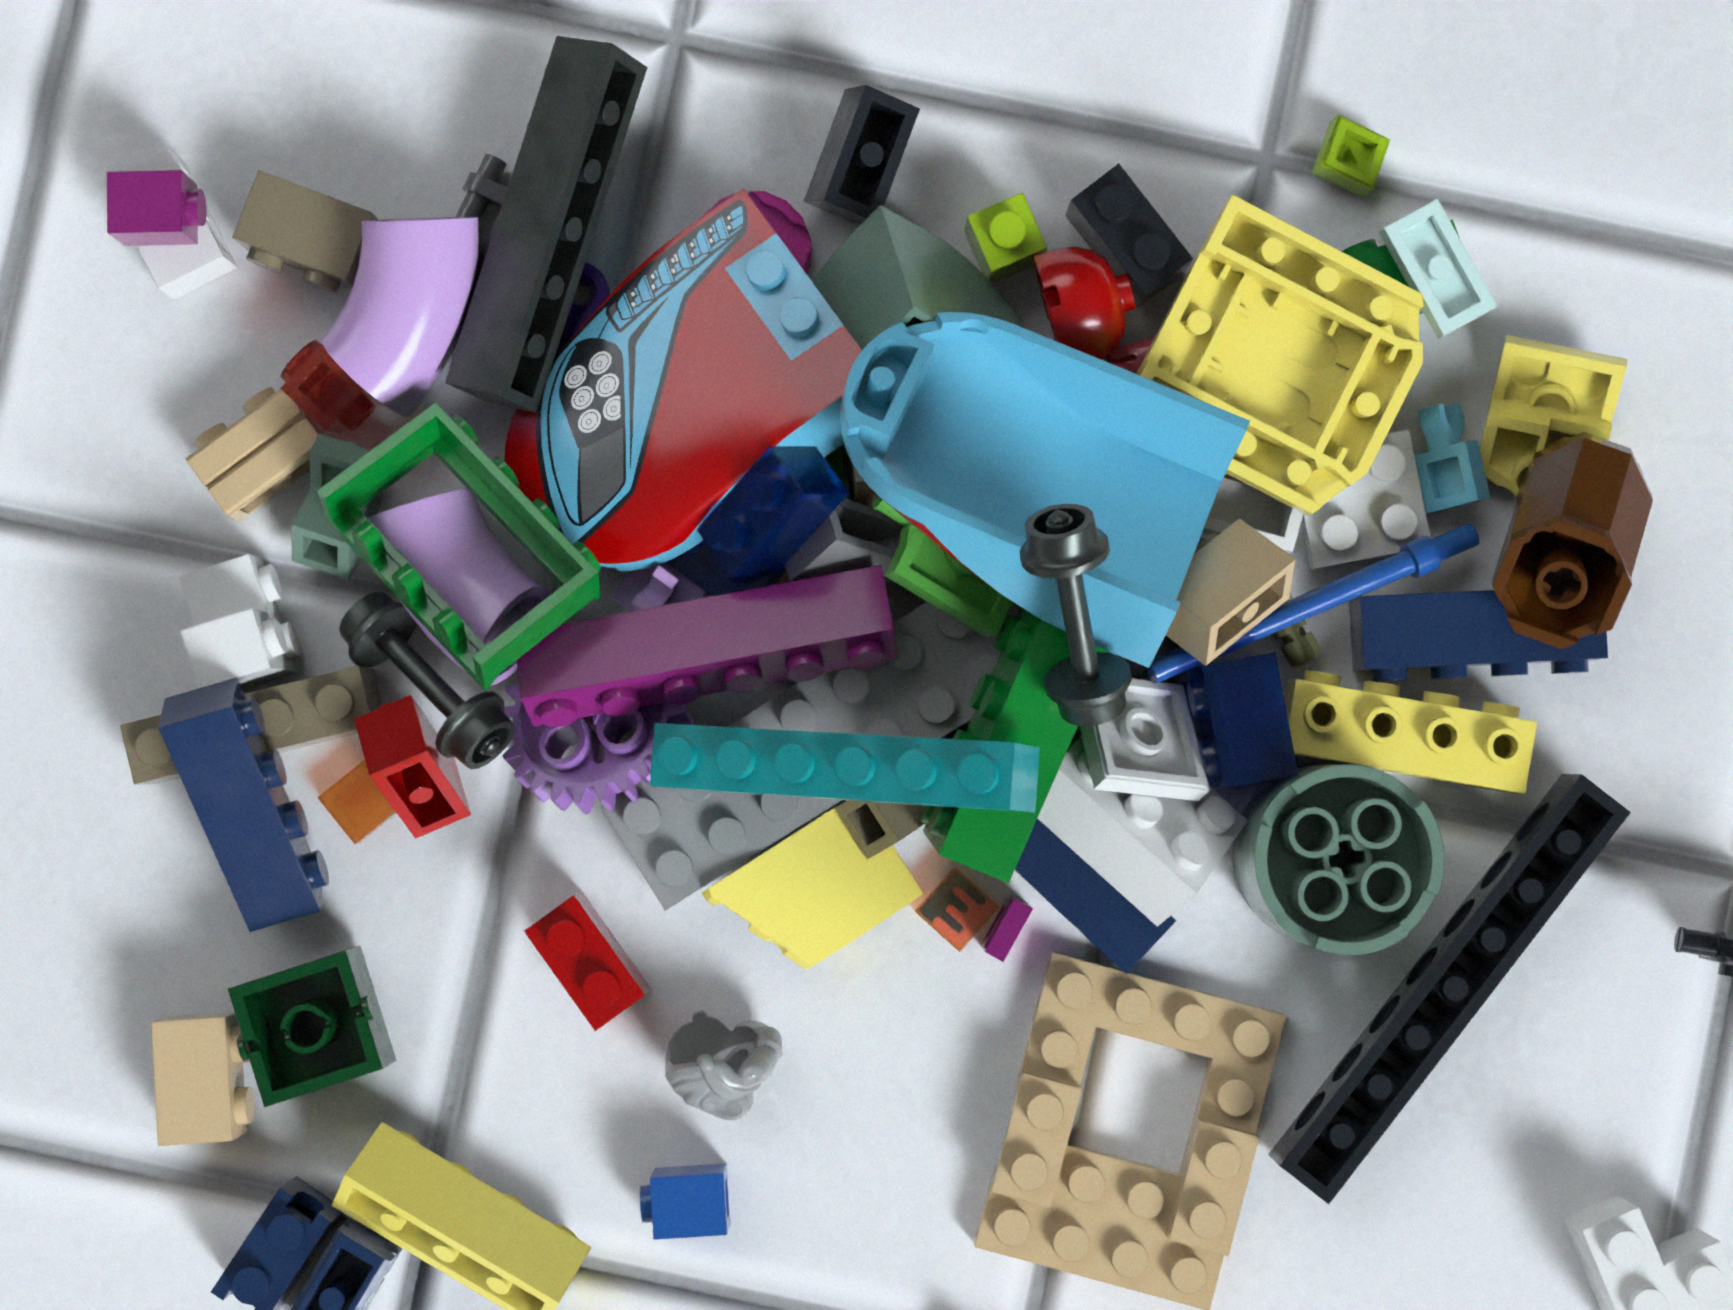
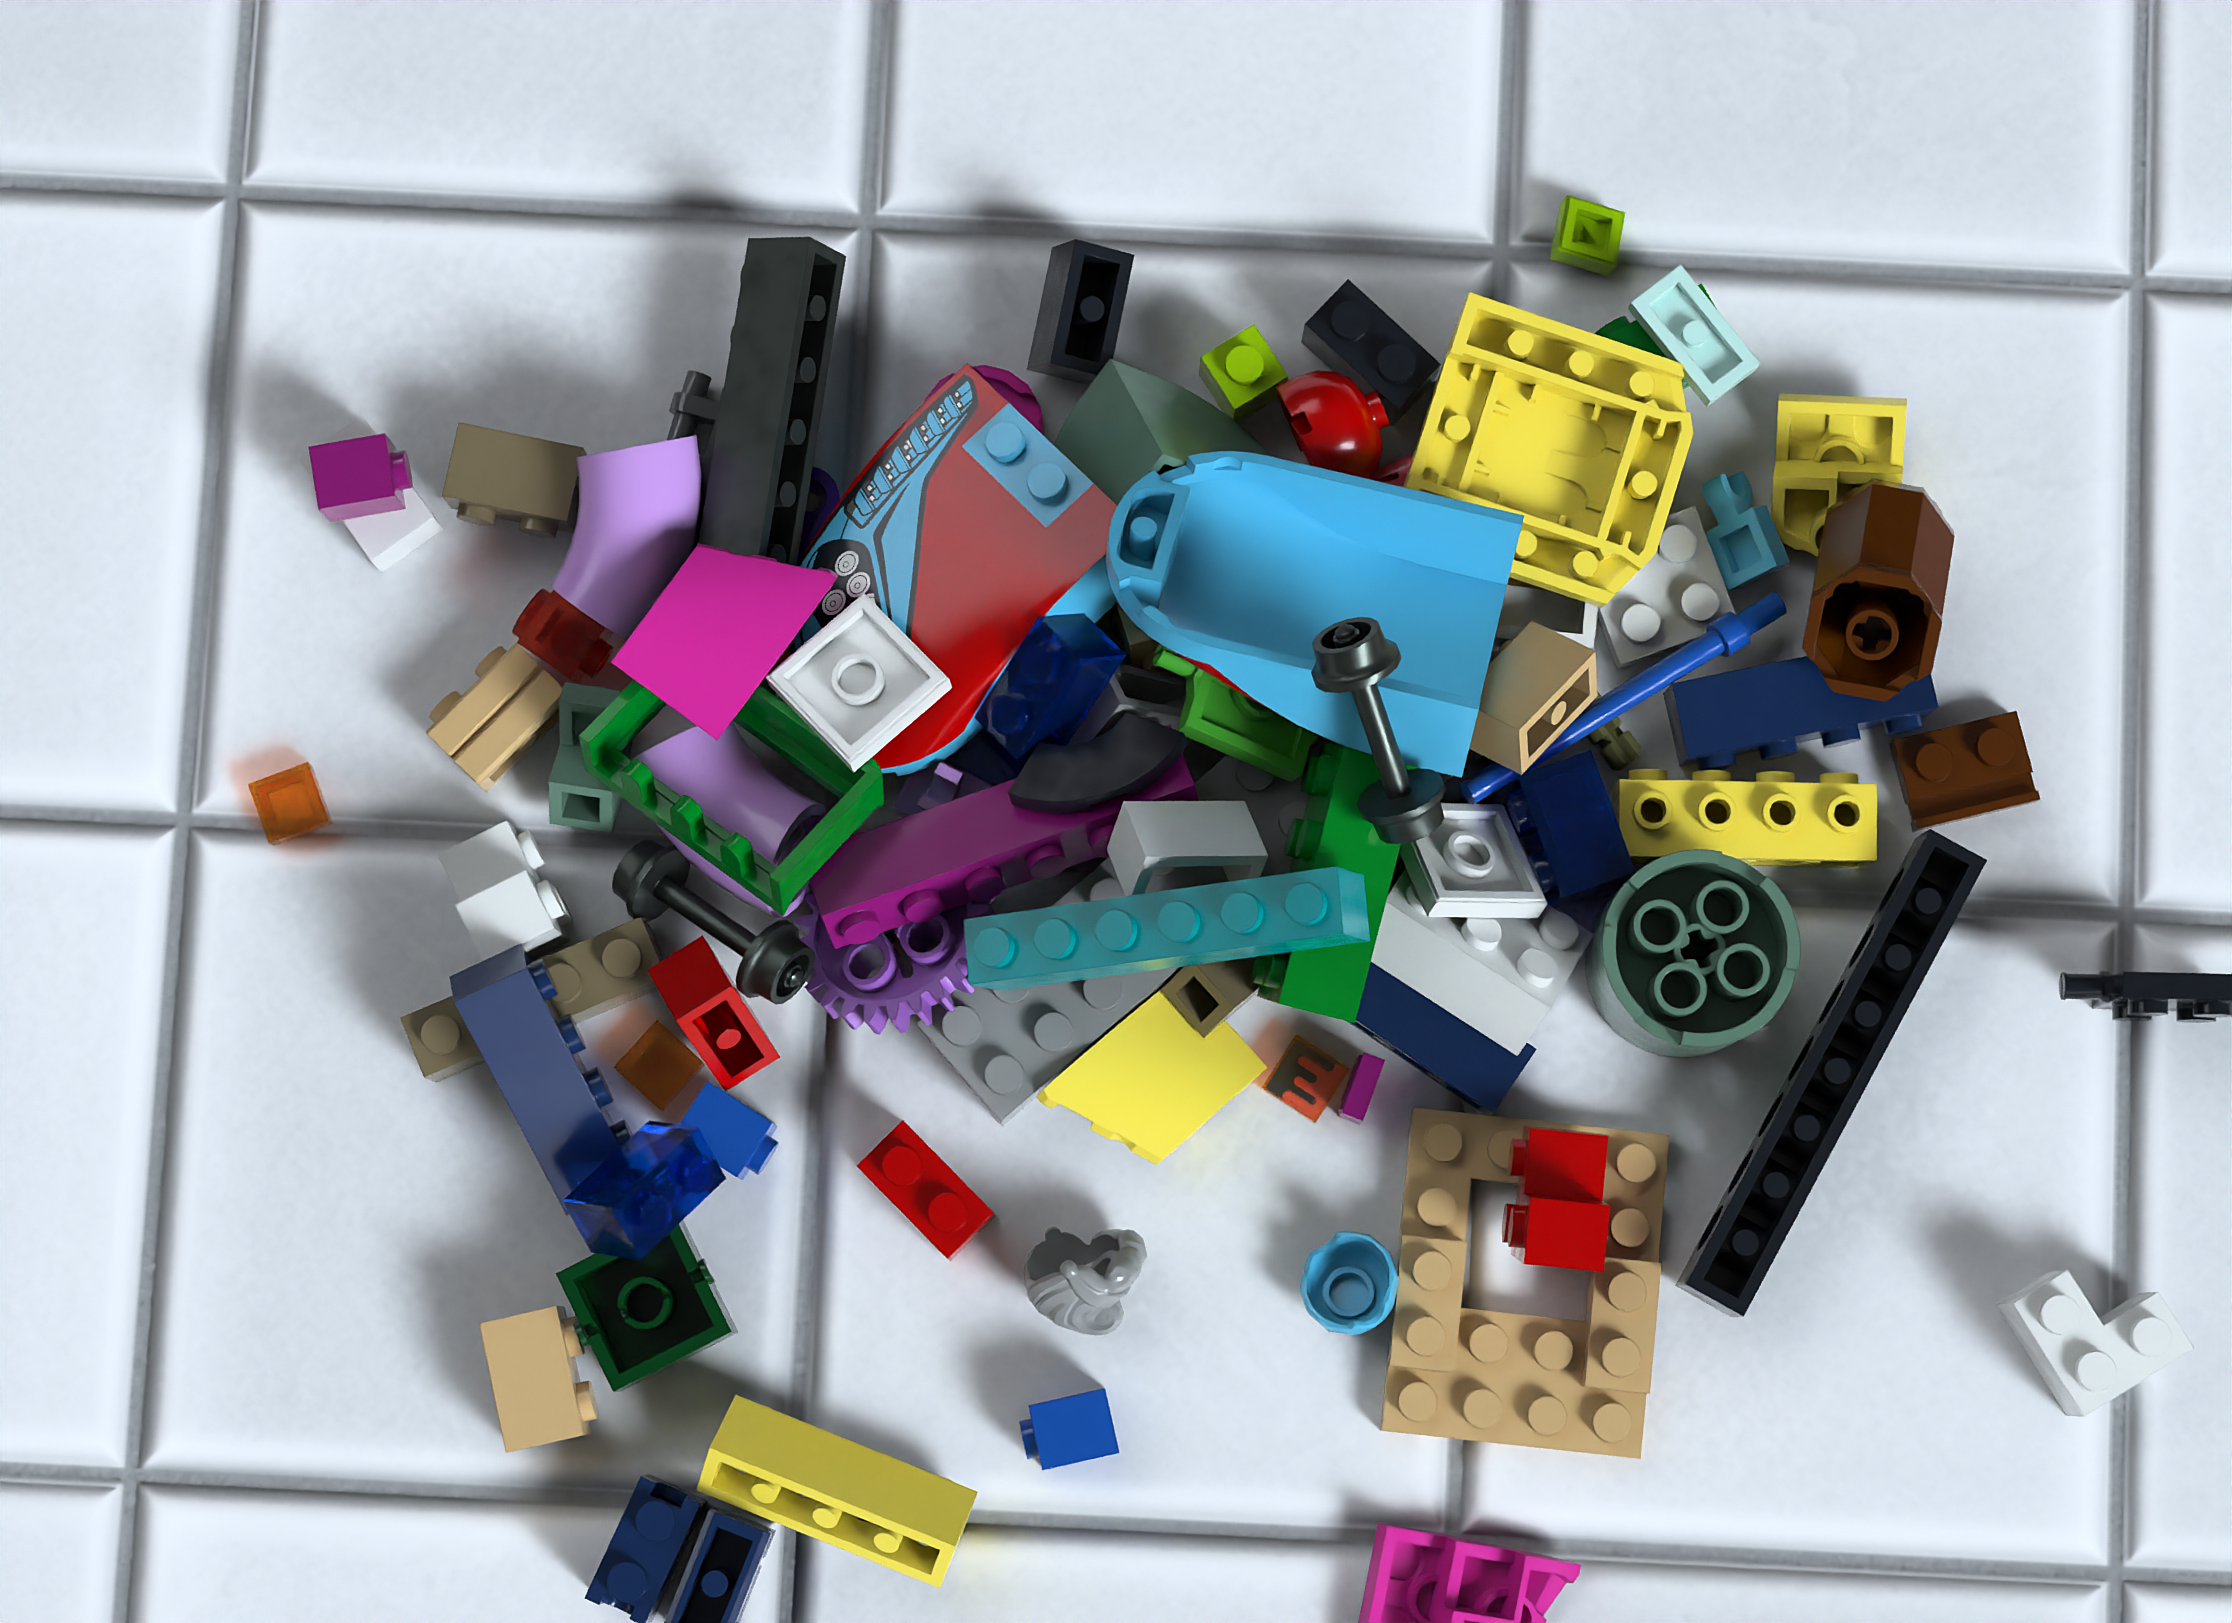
camera: 10 degrees left, 5 degrees down
(55, 504) = (290, 803): none -> clear orange tile
(320, 924) = (644, 1190): none -> clear blue brick
(412, 876) = (733, 1131): none -> blue brick
(466, 410) = (720, 631): none -> dark pink slope
(590, 480) = (858, 682): none -> white tile
(804, 600) = (1098, 770): none -> black tile
(876, 678) = (1184, 835): none -> white panel
(966, 1109) = (1349, 1283): none -> medium azure hair
(1171, 1082) = (1558, 1199): none -> red brick
(1618, 718) = (1964, 771): none -> reddish brown plate

